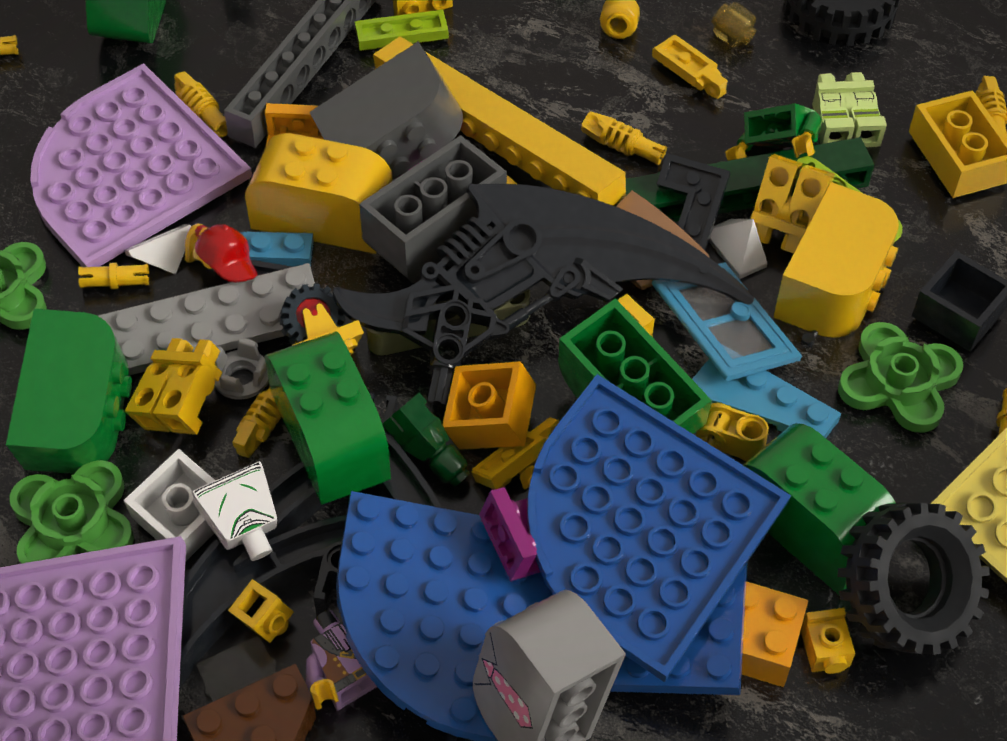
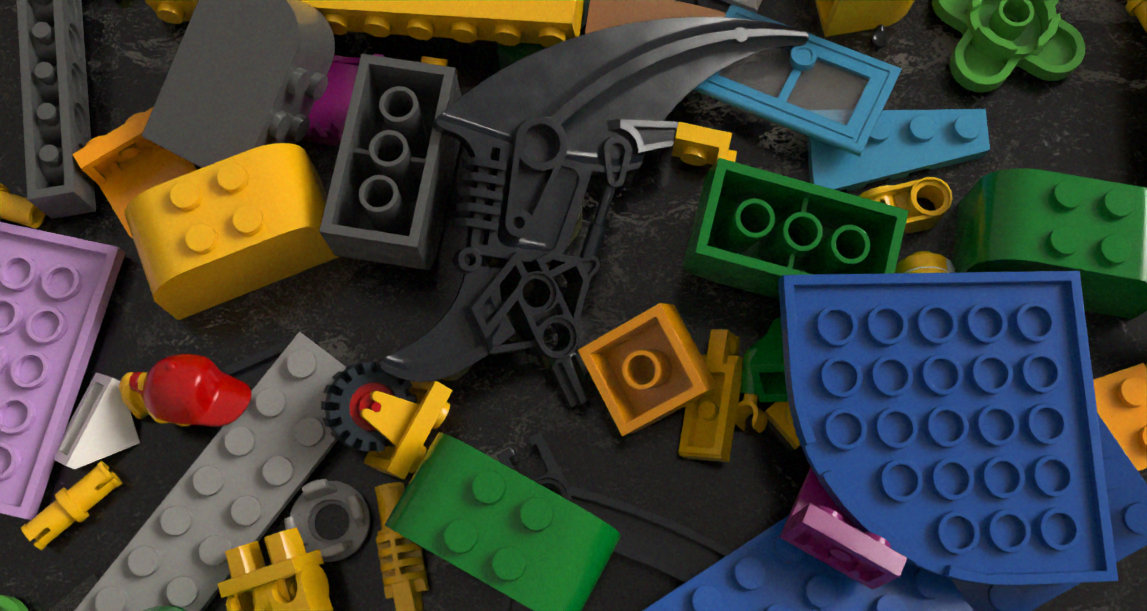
camera: 35 degrees left, 20 degrees up
(280, 247) = (233, 327): dark azure hinge -> none
(424, 438) = (612, 460): dark green piece -> none

